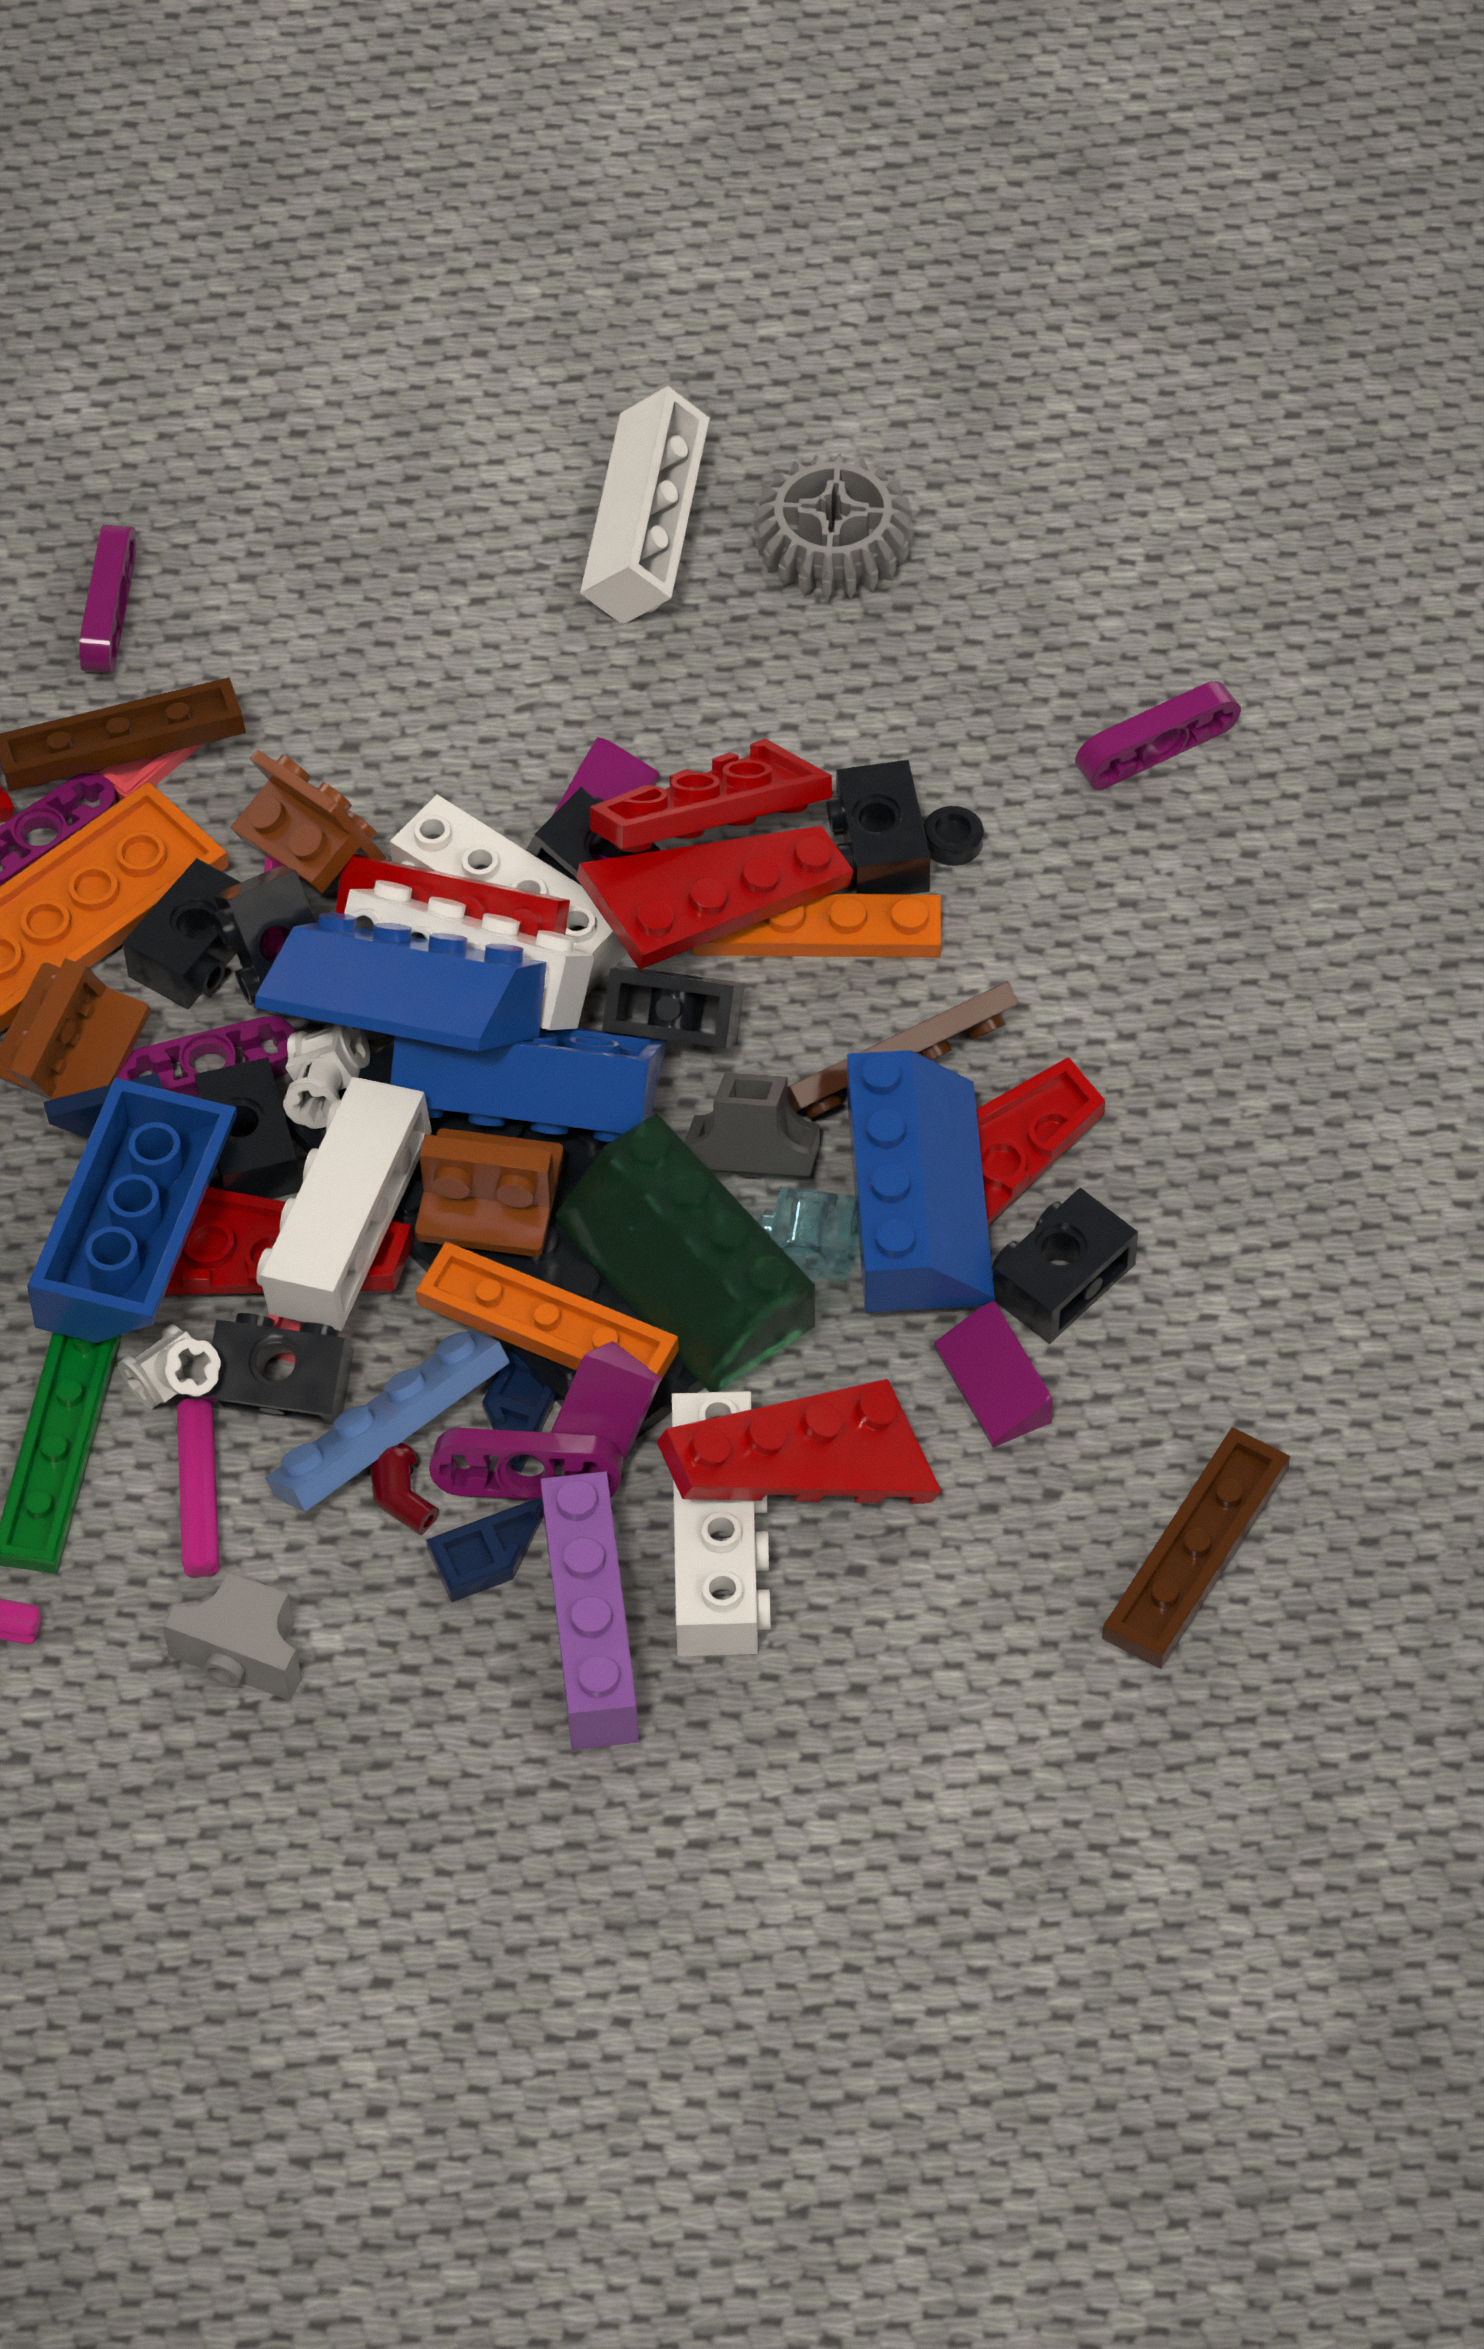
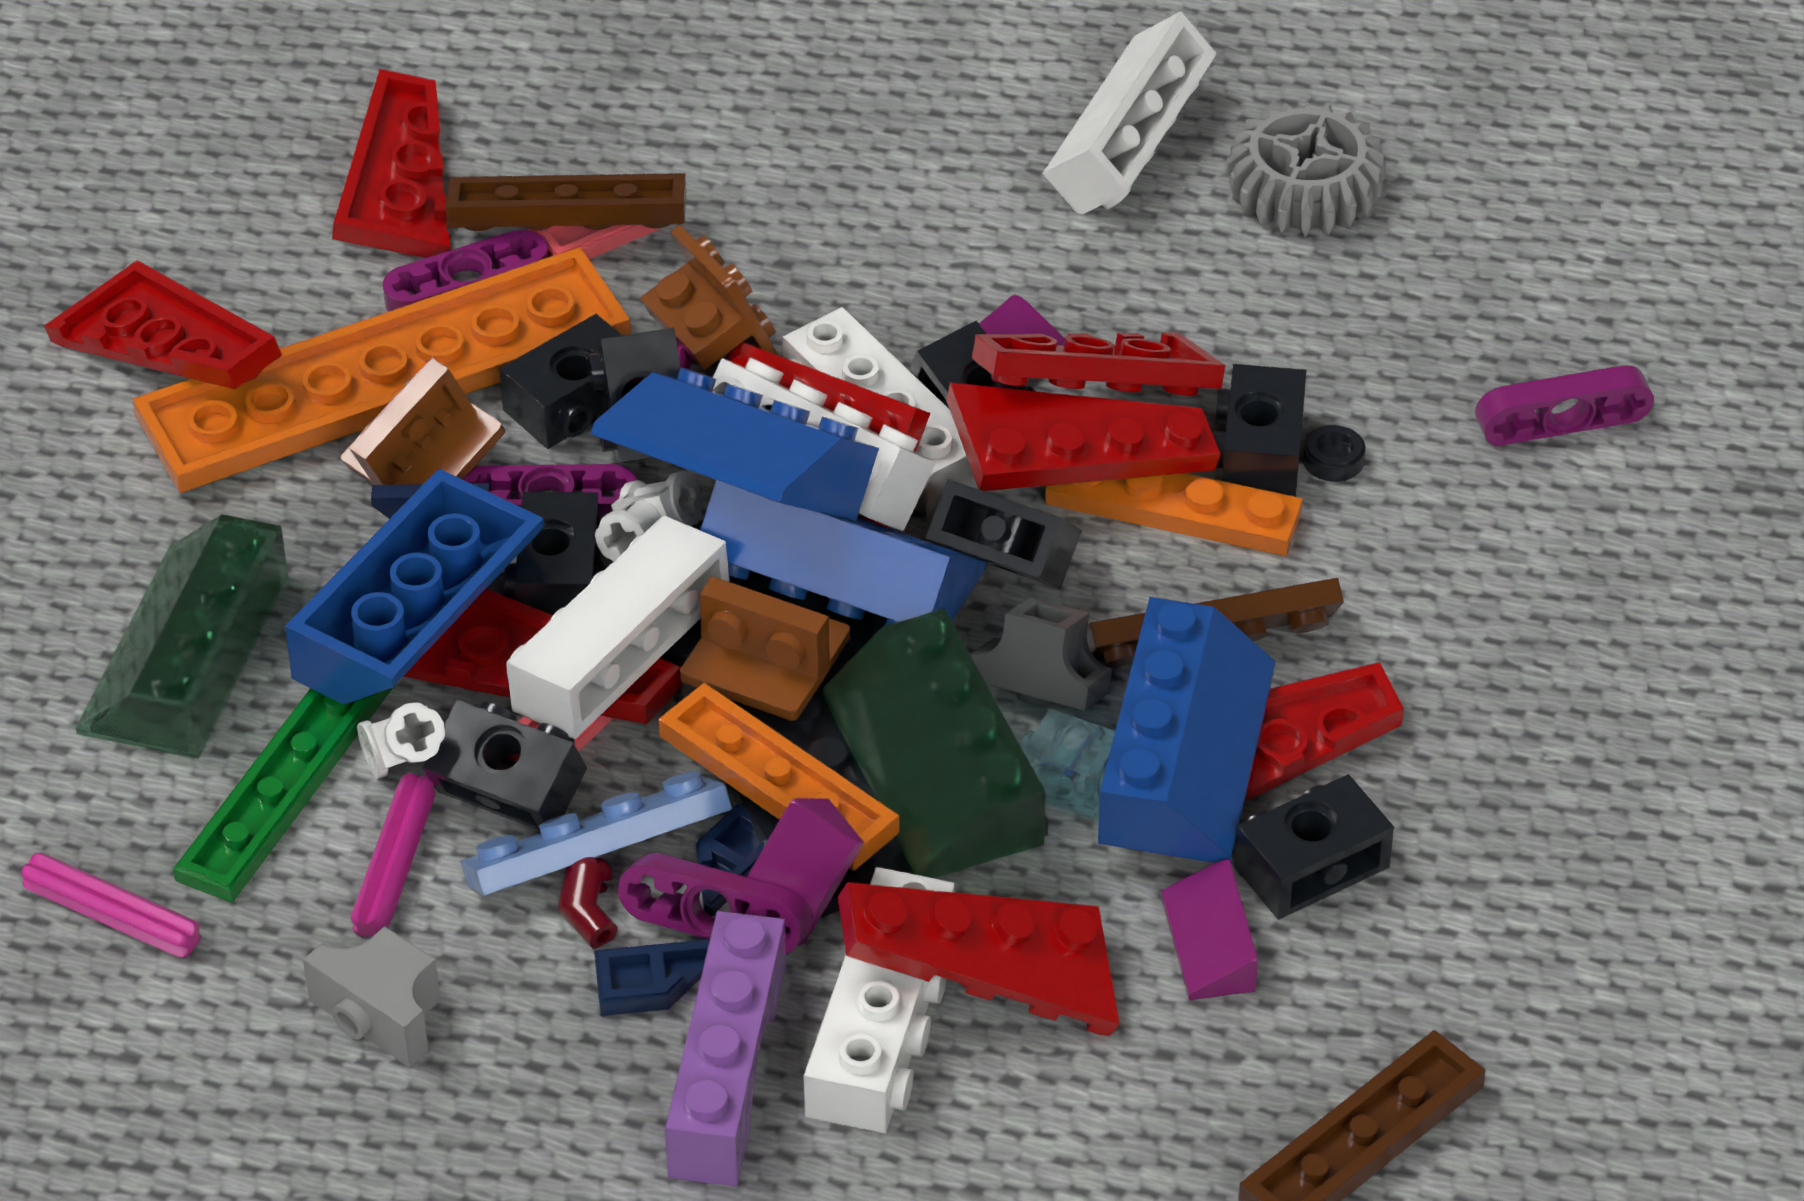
camera: 15 degrees right, 10 degrees down
(107, 598) = (602, 94): magenta beam -> none

